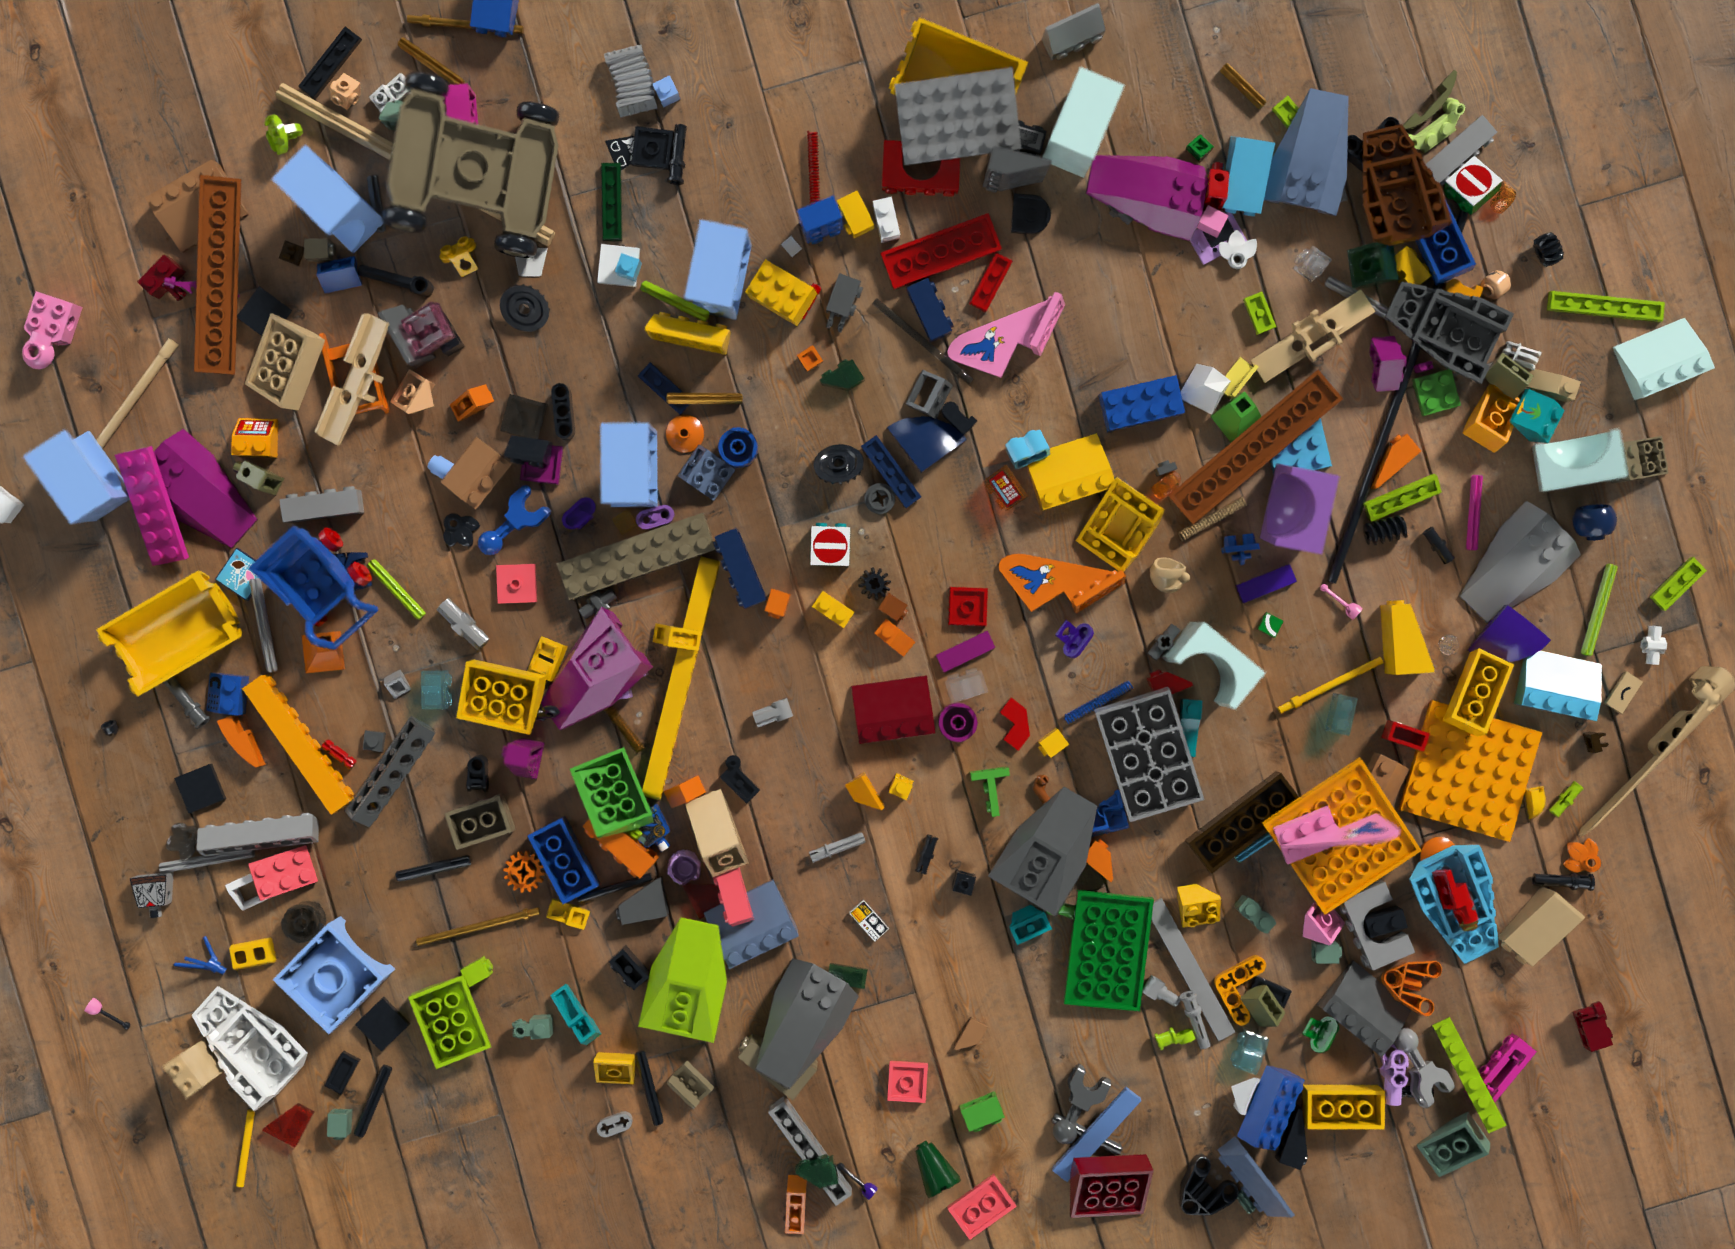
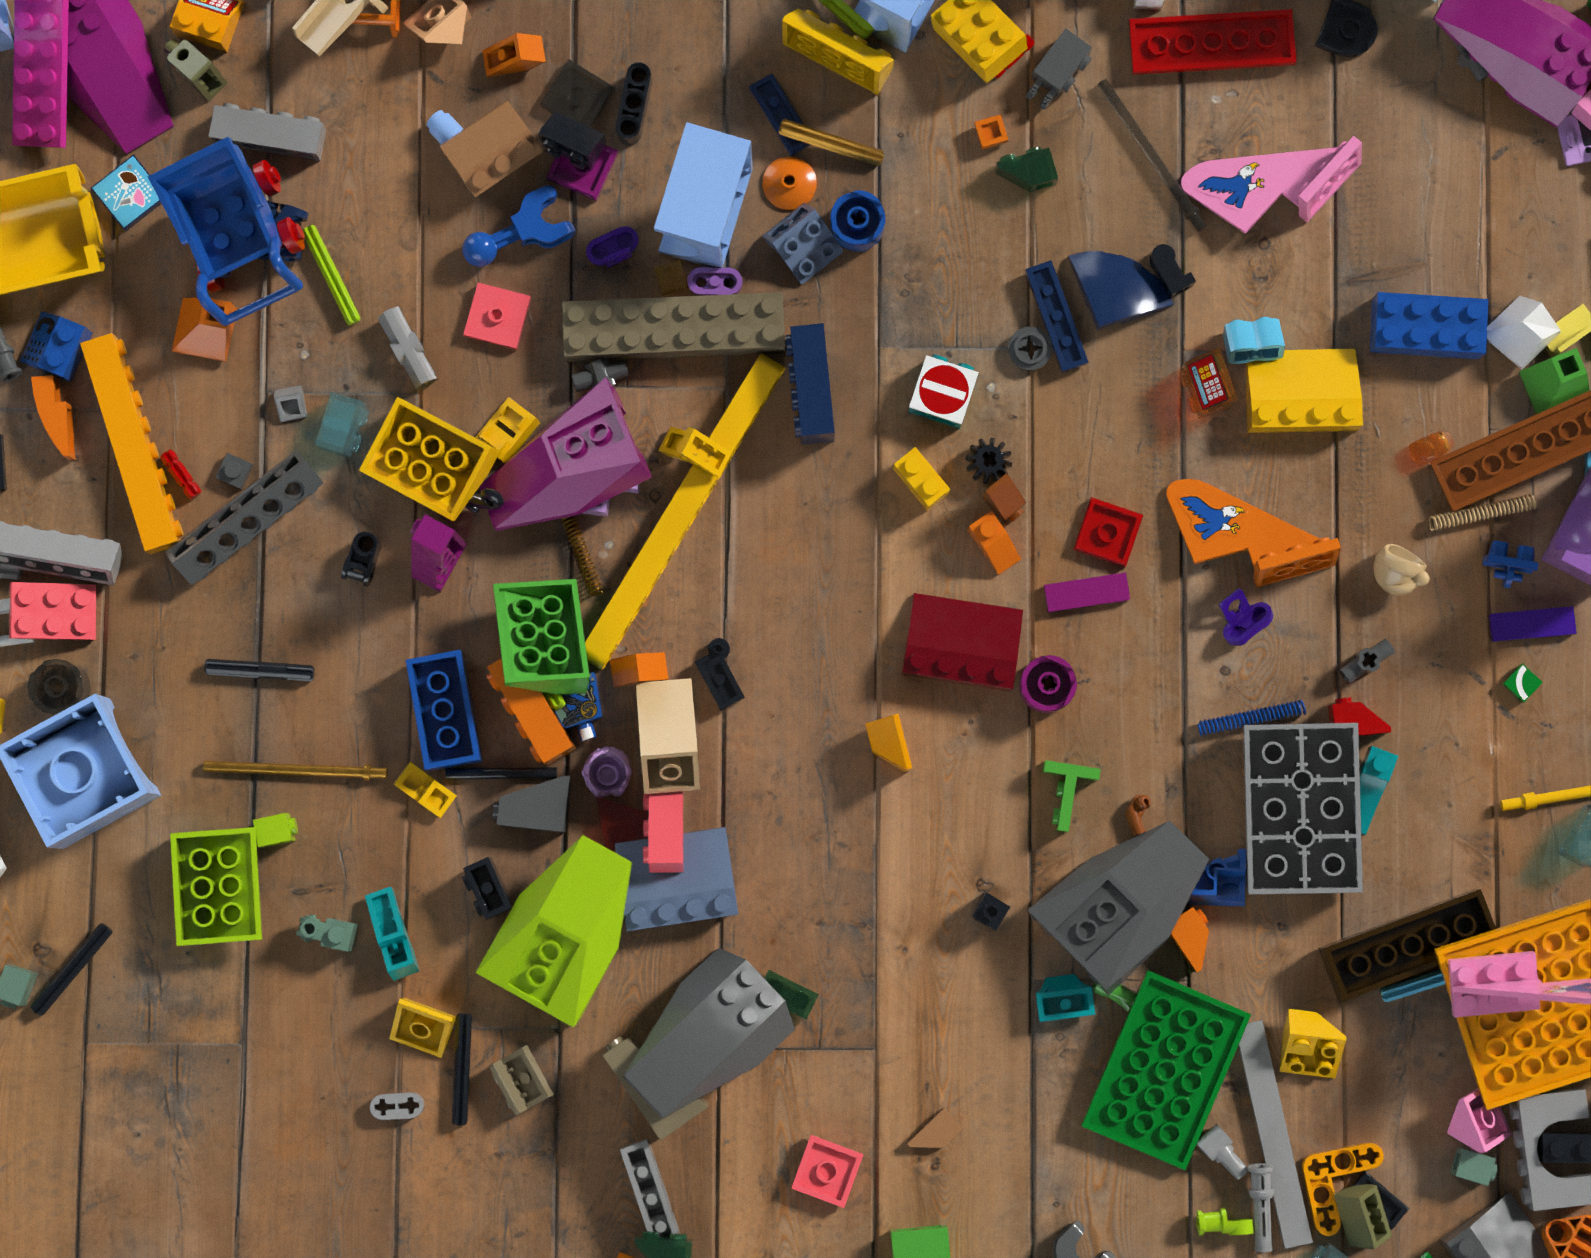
camera: 20 degrees right, 5 degrees down
(263, 625) = (136, 268): light grey axle -> none
(342, 1072) = (41, 917): black tile -> none
(382, 1024) = (119, 865): black tile -> none
(461, 532) = (446, 223): black plate -> none
(480, 821) = (345, 622): dark tan brick -> none
(523, 879) = (390, 700): orange gear -> none
(776, 711) = (802, 596): light grey piece -> none
(777, 603) = (848, 446): orange brick -> none
(837, 847) = (815, 811): light grey axle -> none
(838, 463) = (988, 283): black gear -> none
(869, 920) = (841, 926): tile -> none
(901, 786) = (942, 751): yellow brick -> none
(926, 854) = (949, 857): black pin -> none
(930, 309) = (1174, 115): dark blue brick -> none
(937, 397) = (1148, 235): dark grey tile -> none
(966, 685) = (1074, 639): clear brick -> none
(990, 282) = (1268, 103): red tile -> none
(1020, 730) = (1134, 704): red tile -> none
(1052, 743) = (1171, 755): yellow brick -> none
(1120, 525) = (1353, 481): yellow slope -> none
(1165, 467) = (1436, 422): dark grey plate -> none
(1236, 671) = (1455, 712): light aqua piece -> none
(1255, 914) = (1391, 1088): sand green brick -> none

